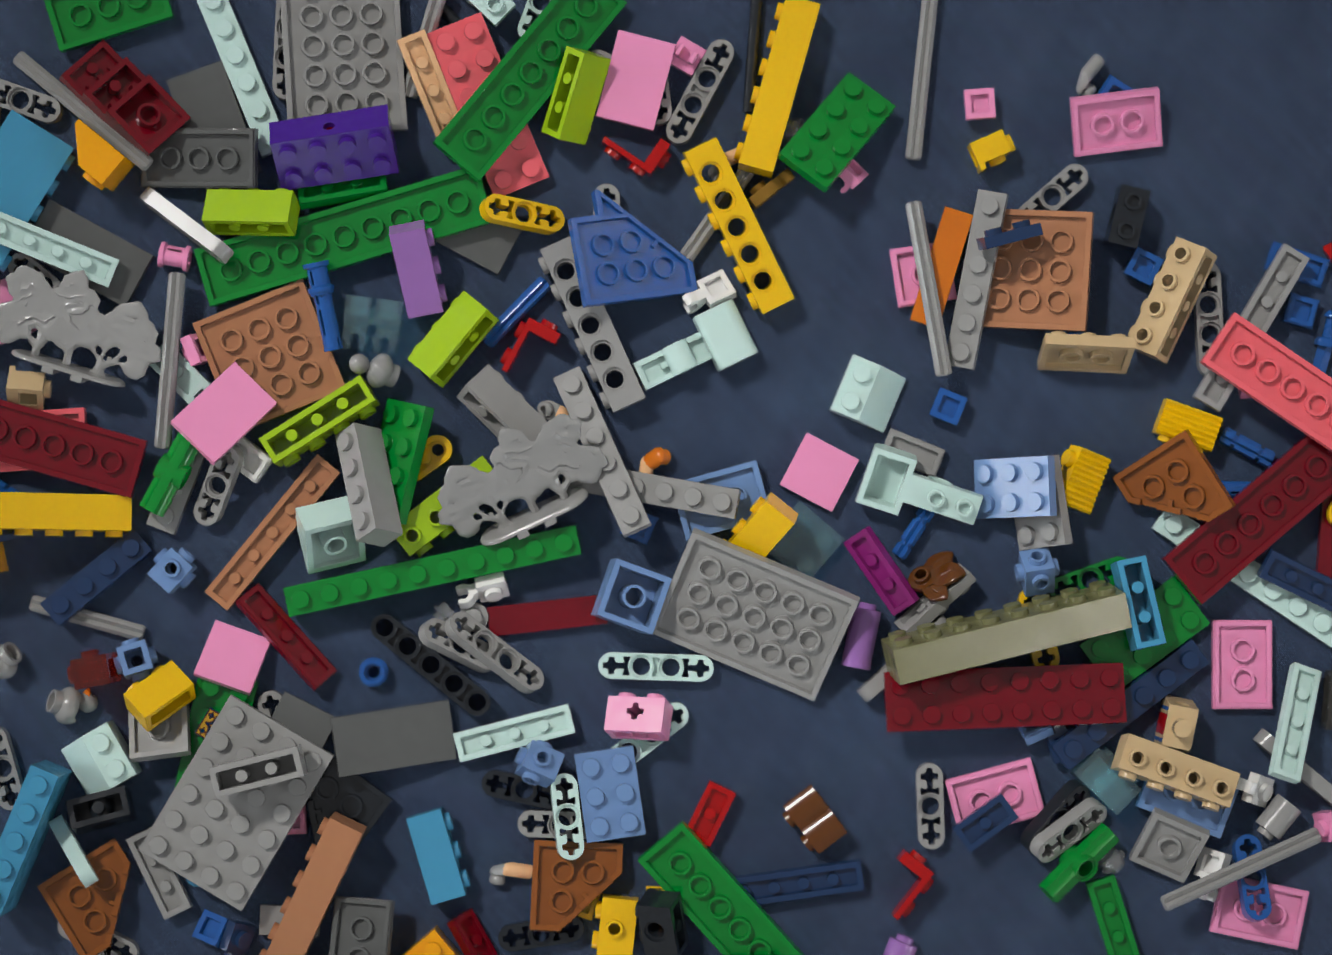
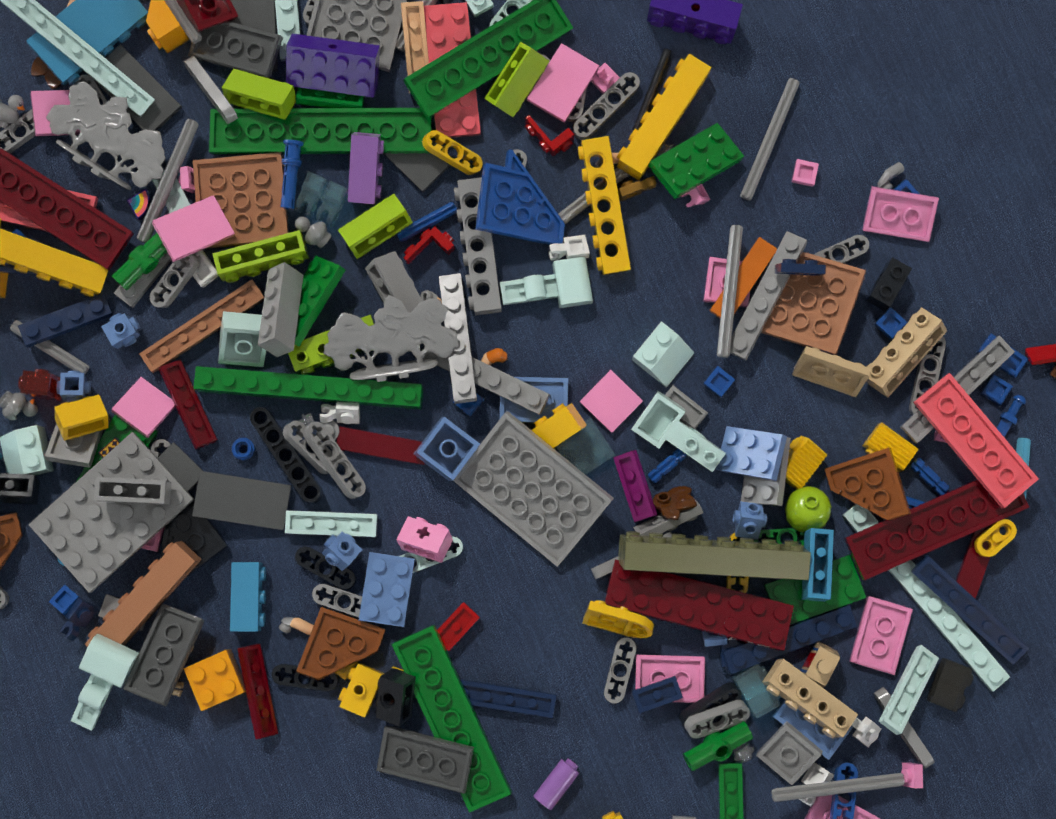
camera: 15 degrees right, 5 degrees down
(28, 388) = (60, 170): tan brick -> none
(141, 398) = (139, 203): none -> tile
(162, 881) = (40, 556): light grey plate -> none
(175, 256) = (195, 110): bright pink bush -> none
(430, 461) = (331, 309): yellow plate -> none
(576, 838) = (352, 614): light aqua beam -> none
(656, 661) = (450, 503): light aqua beam -> none
(814, 819) = (531, 653): reddish brown brick -> none
(861, 637) = (606, 529): medium lavender brick -> none
(909, 746) = (617, 620): none -> yellow plate
(914, 862) = (597, 710): red bracket -> none
(990, 150) = (803, 207): yellow brick -> none
(1106, 535) = (808, 509): none -> lime cylinder
(1277, 818) = (875, 757): light grey brick -> none

